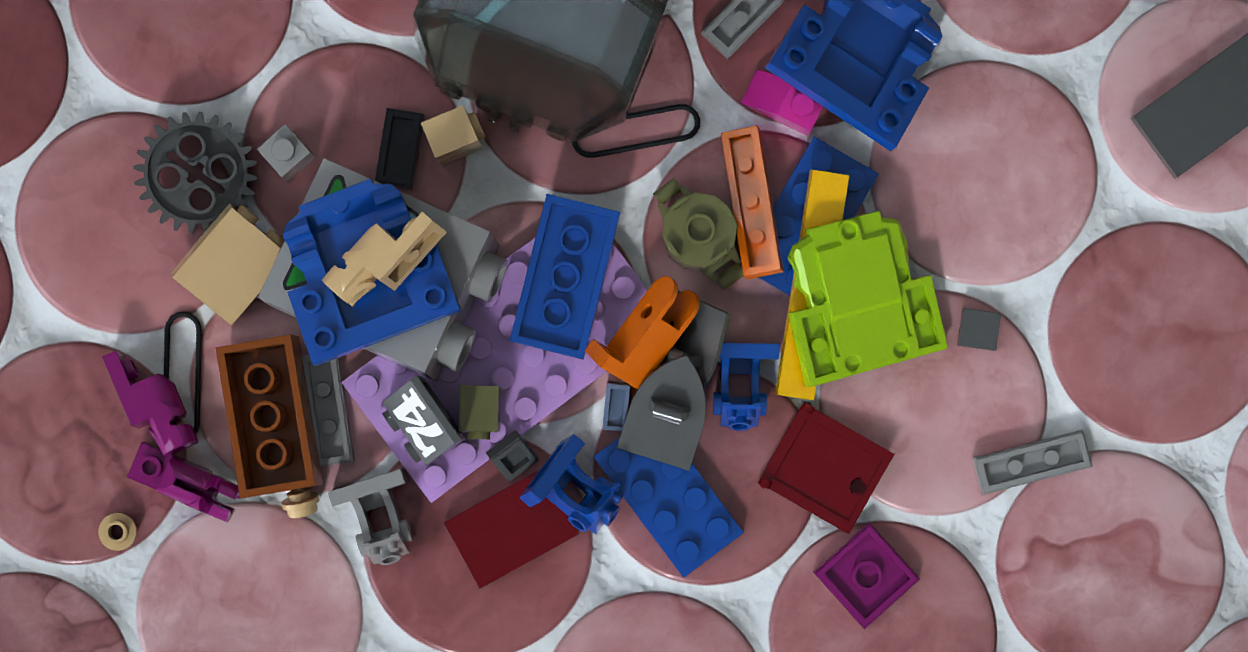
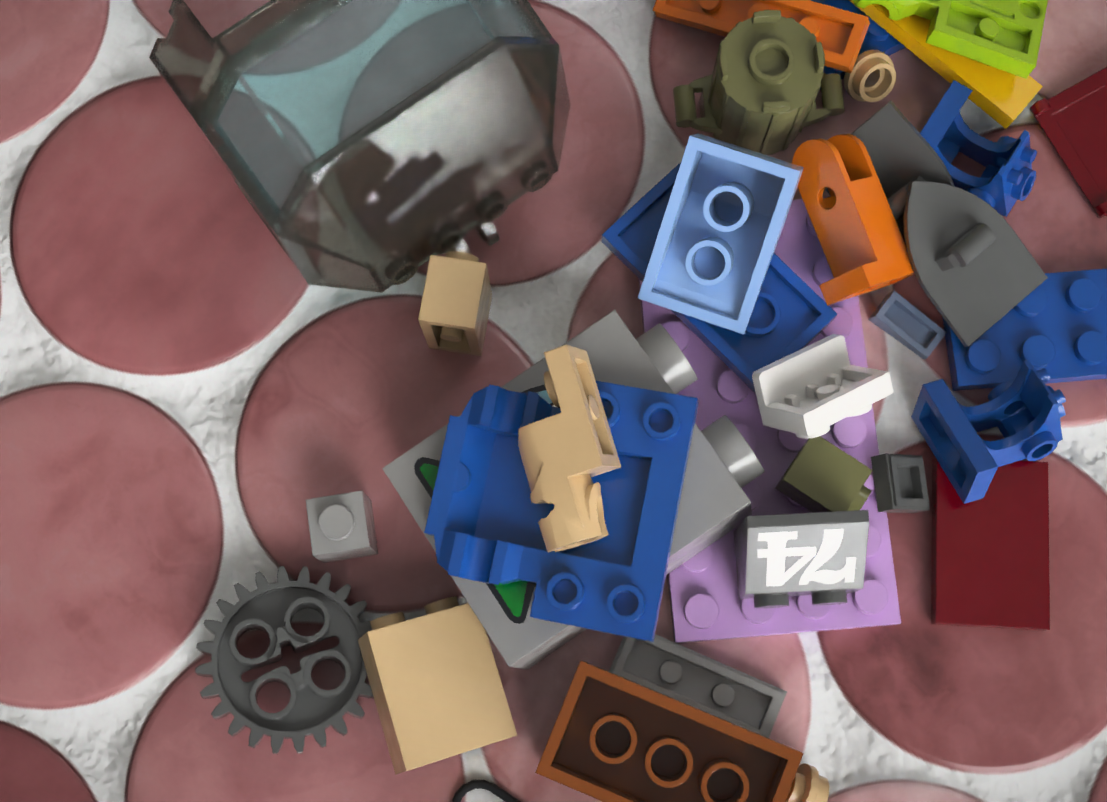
camera: 55 degrees left, 10 degrees down
(388, 544) = (922, 710): light grey tile -> none
(399, 148) = (421, 384): black tile -> none
(527, 373) = (817, 388): none -> white bracket
(586, 261) = (719, 232): none -> light blue slope
(647, 144) = (611, 103): black piece -> none
(758, 293) = (871, 77): none -> tan plate

